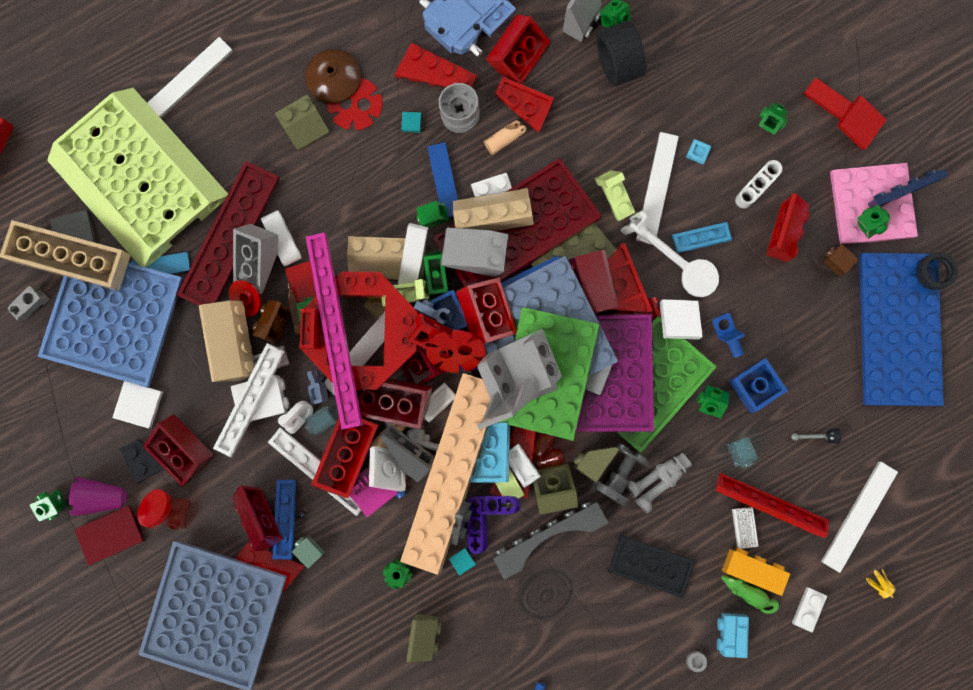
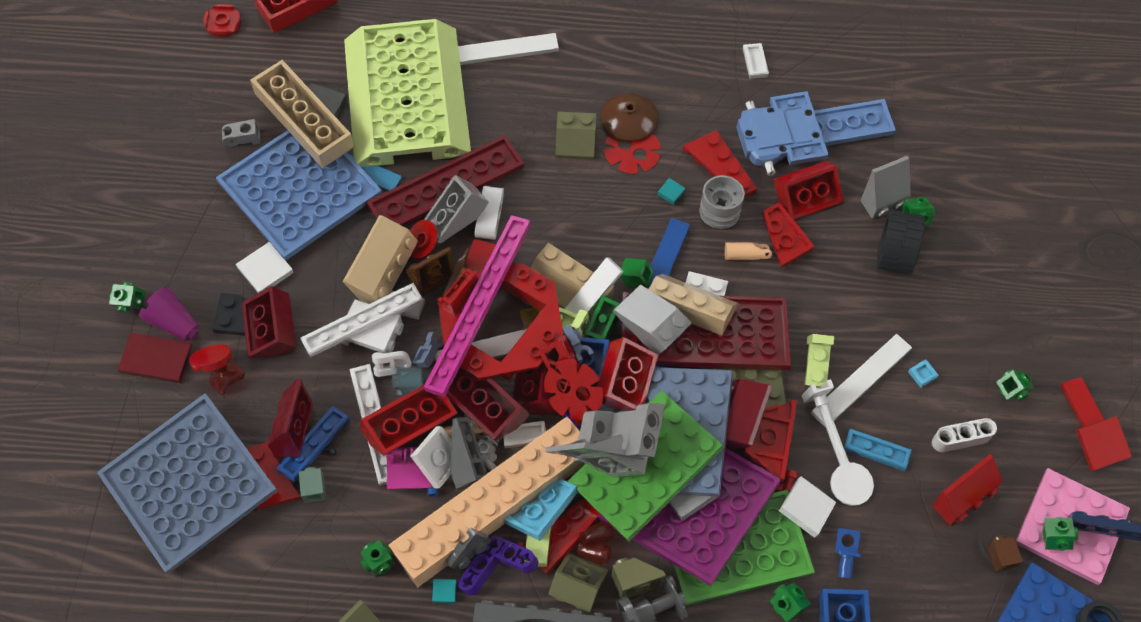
camera: 30 degrees right, 20 degrees down
(522, 466) = (563, 538): white tile -> none

